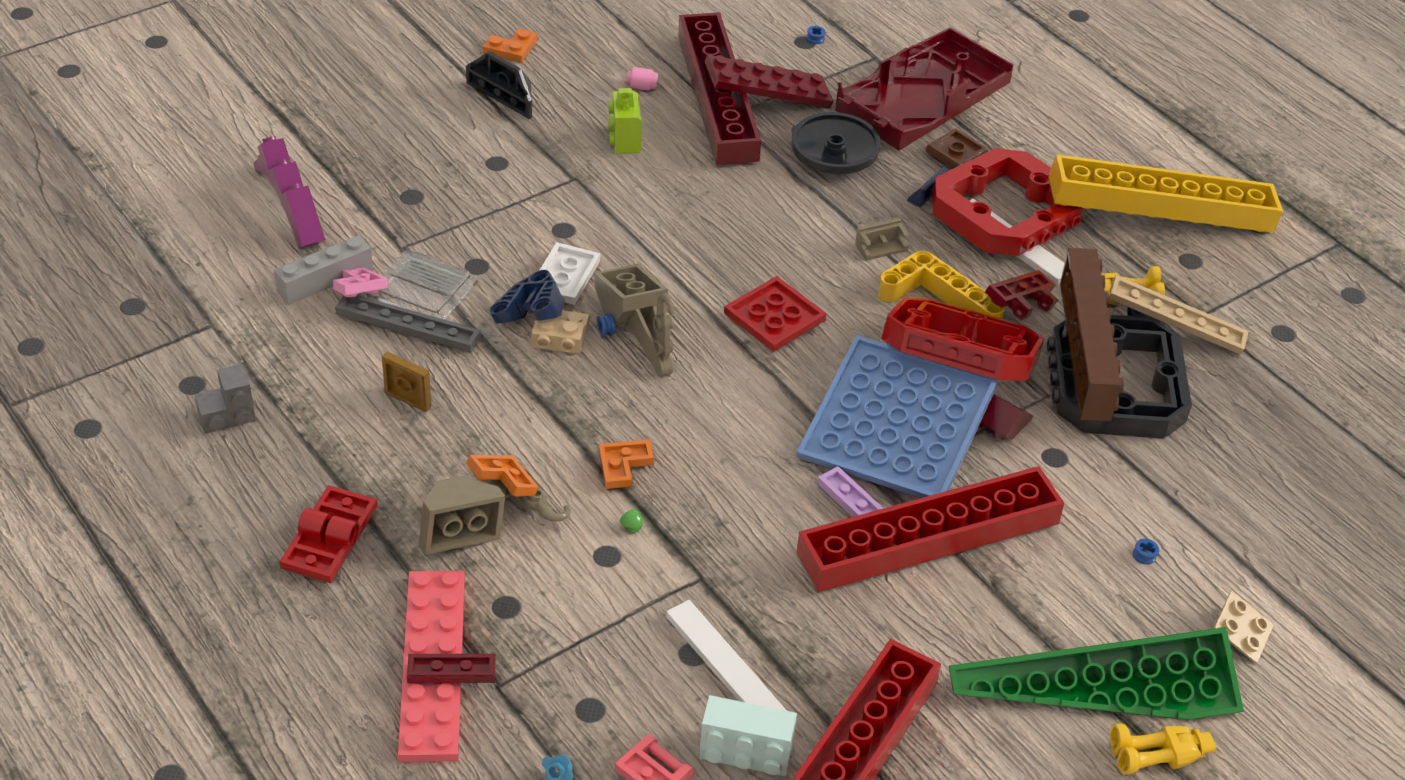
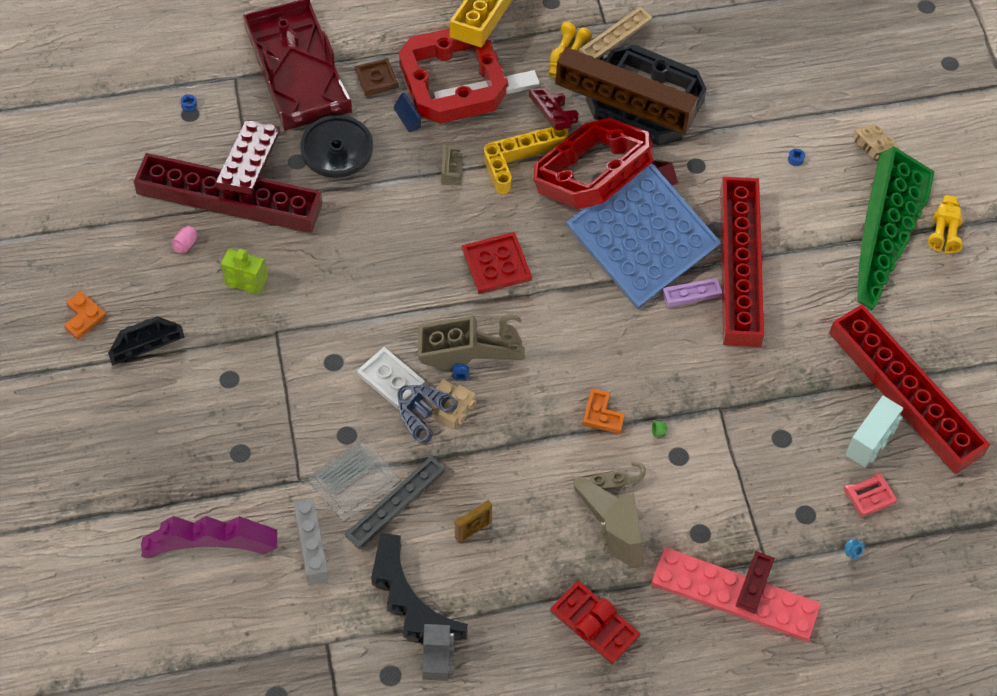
camera: 65 degrees left, 15 degrees up
(288, 358) = (402, 600): none -> black arch
(358, 281) = (343, 516): bright pink plate -> none
(505, 469) = (598, 486): orange plate -> none
(720, 656) = (800, 422): white tile -> none

